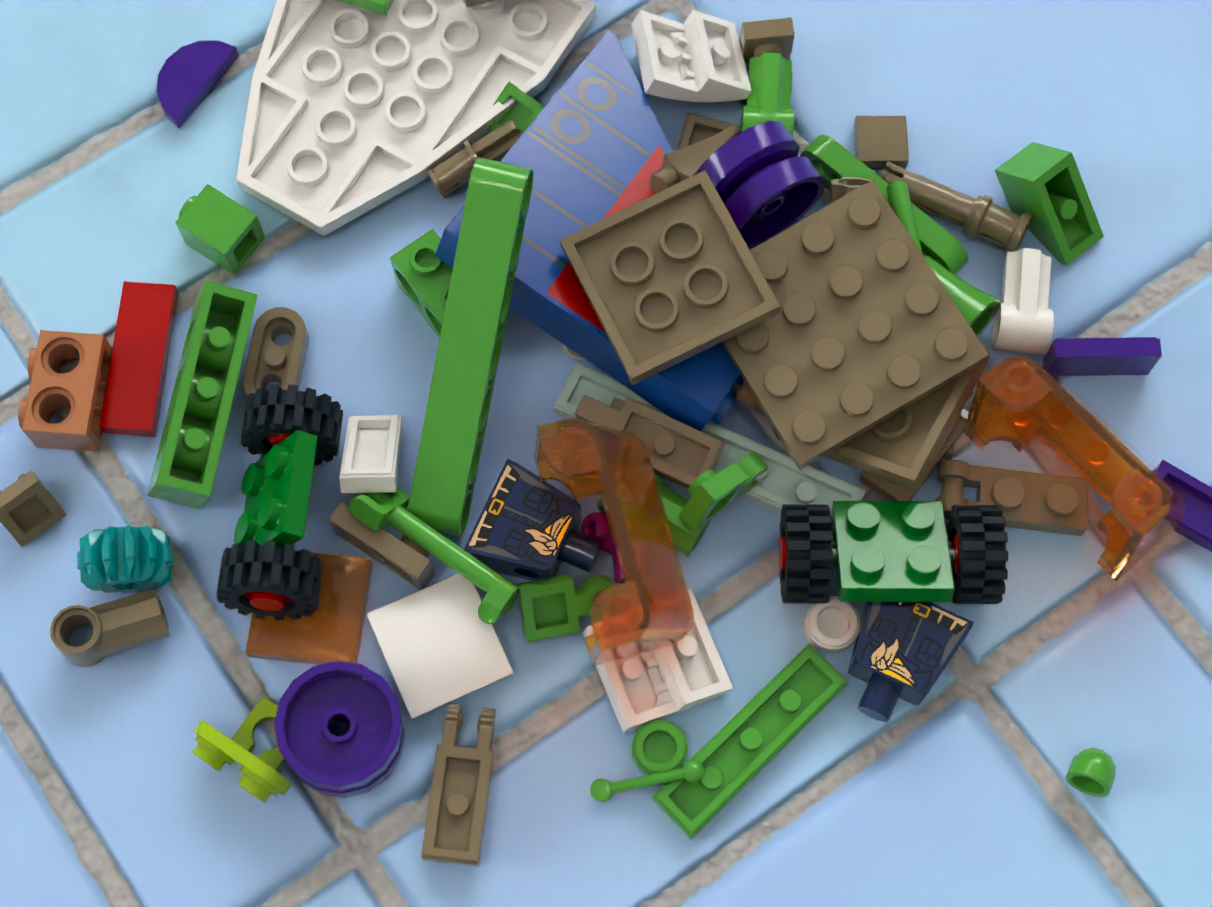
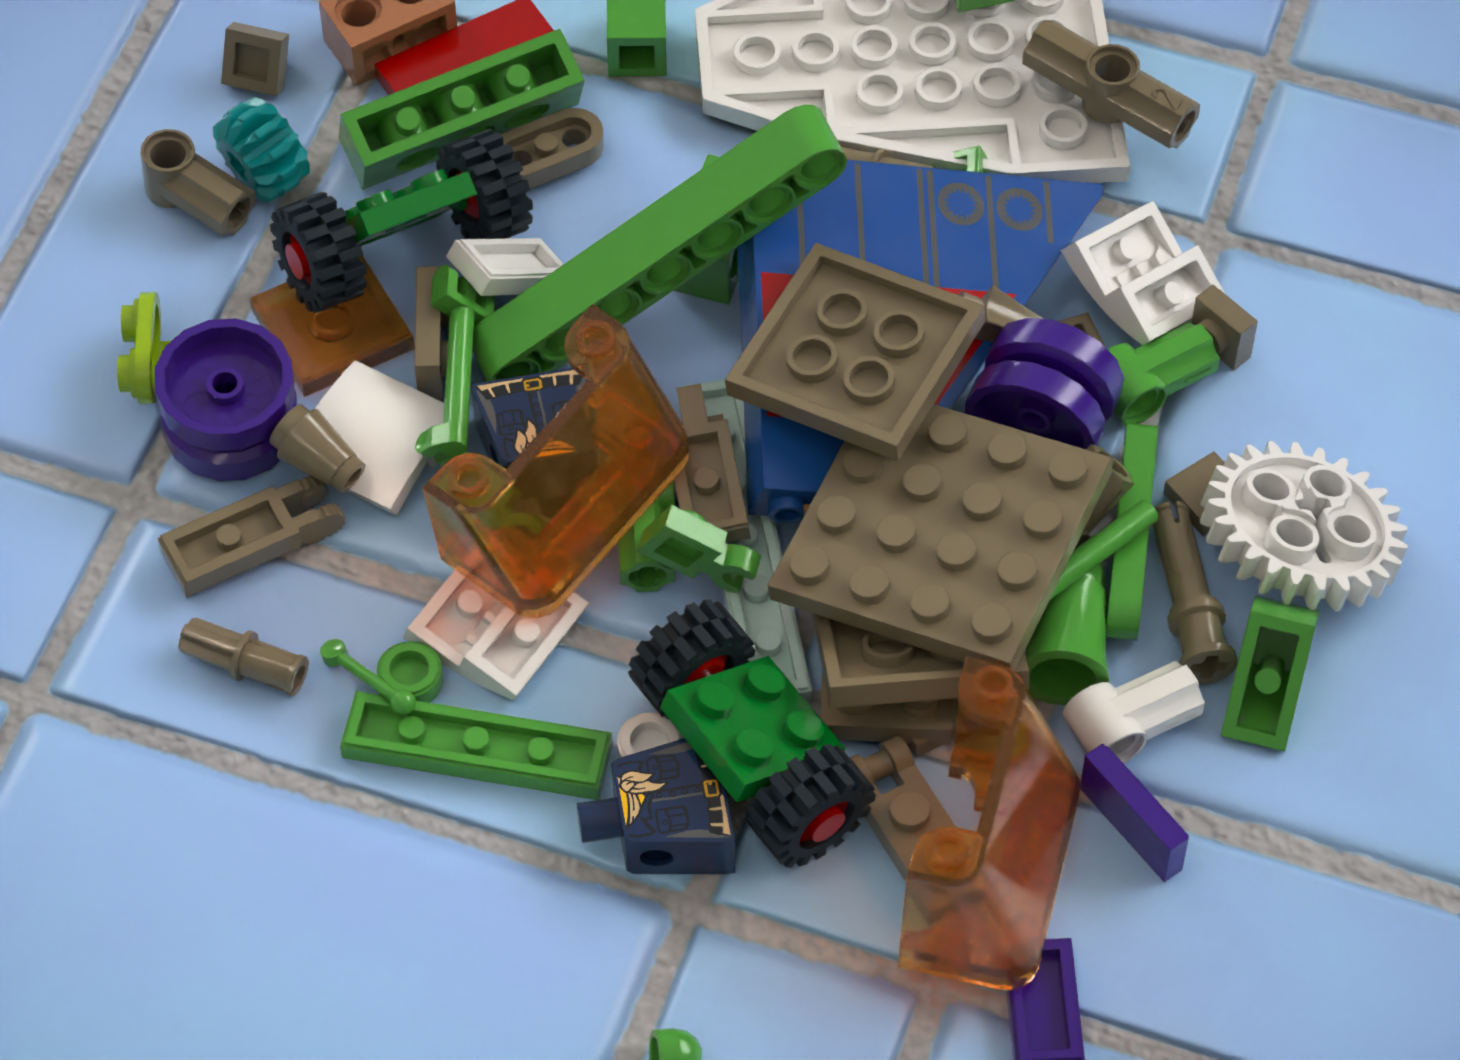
camera: 55 degrees right, 15 degrees down
(436, 693) = (316, 448): none -> dark tan cone
(563, 858) = (244, 655): none -> dark tan axle
(960, 105) = (1303, 526): none -> white gear

